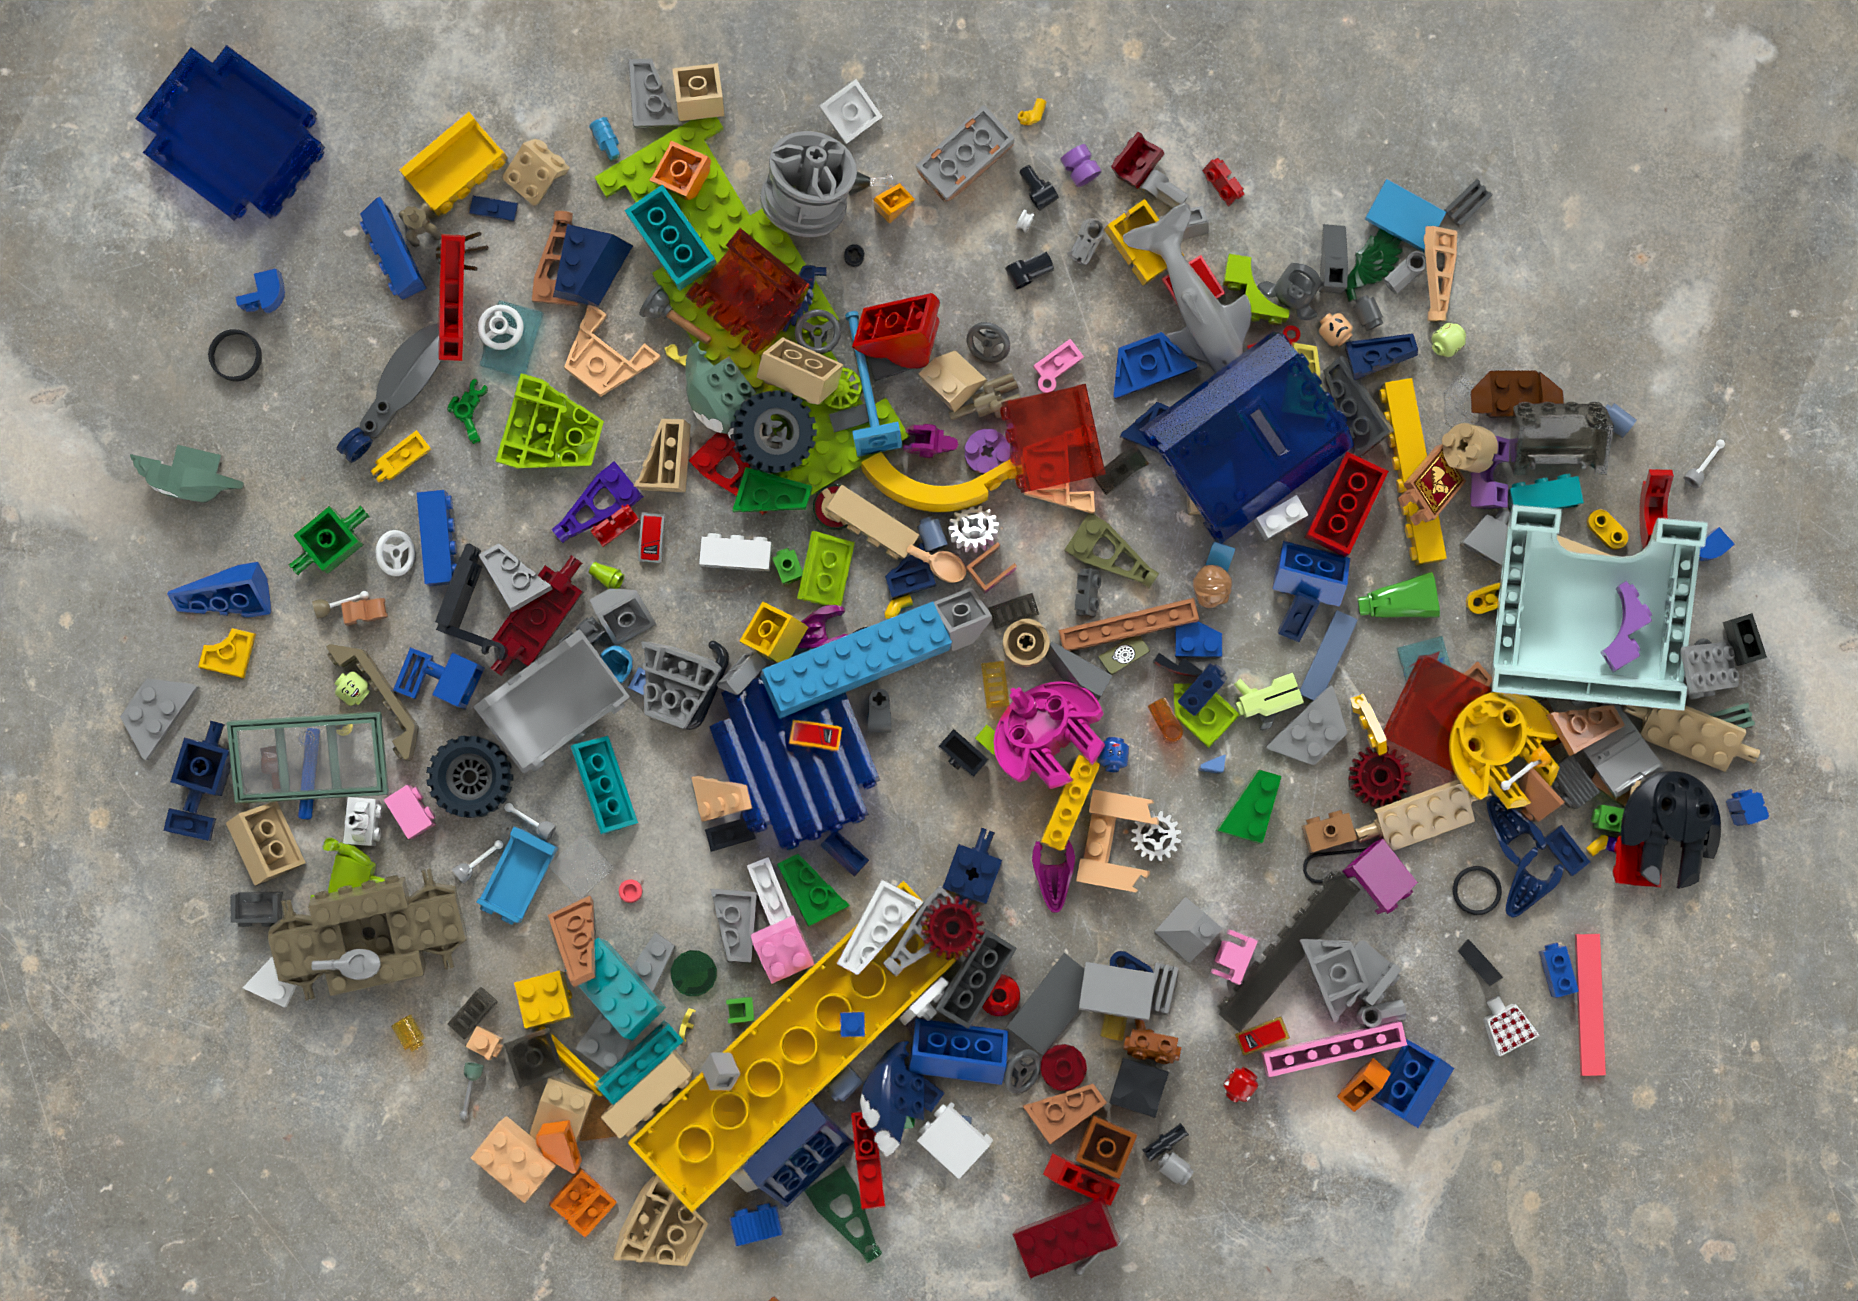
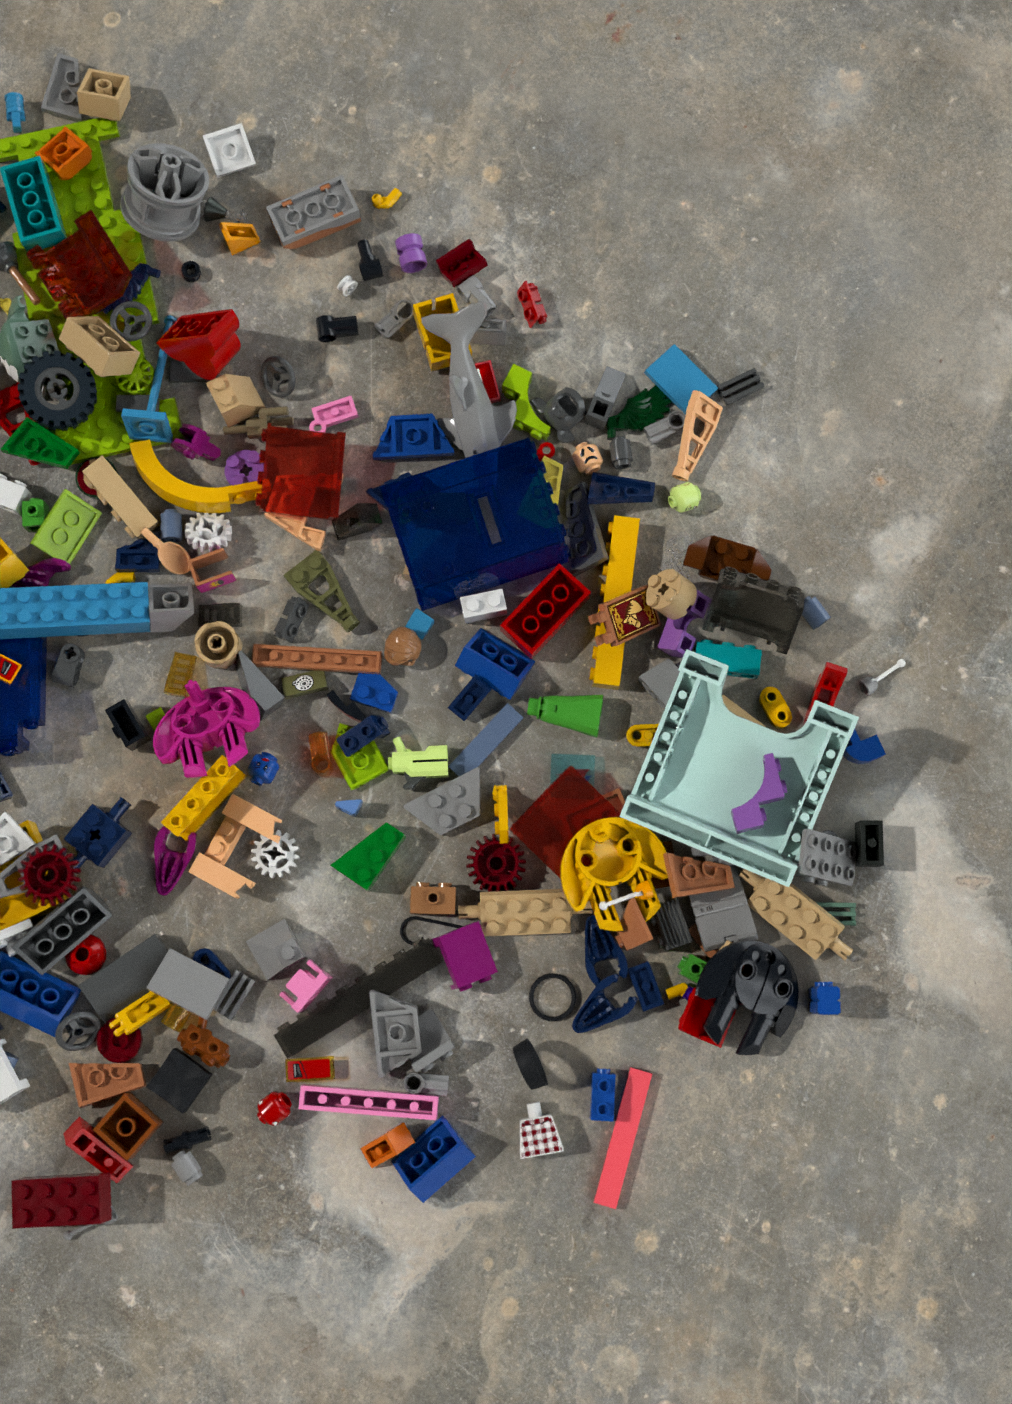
camera: 15 degrees right, 5 degrees down
(1076, 1034) = (139, 1013): none -> yellow hinge

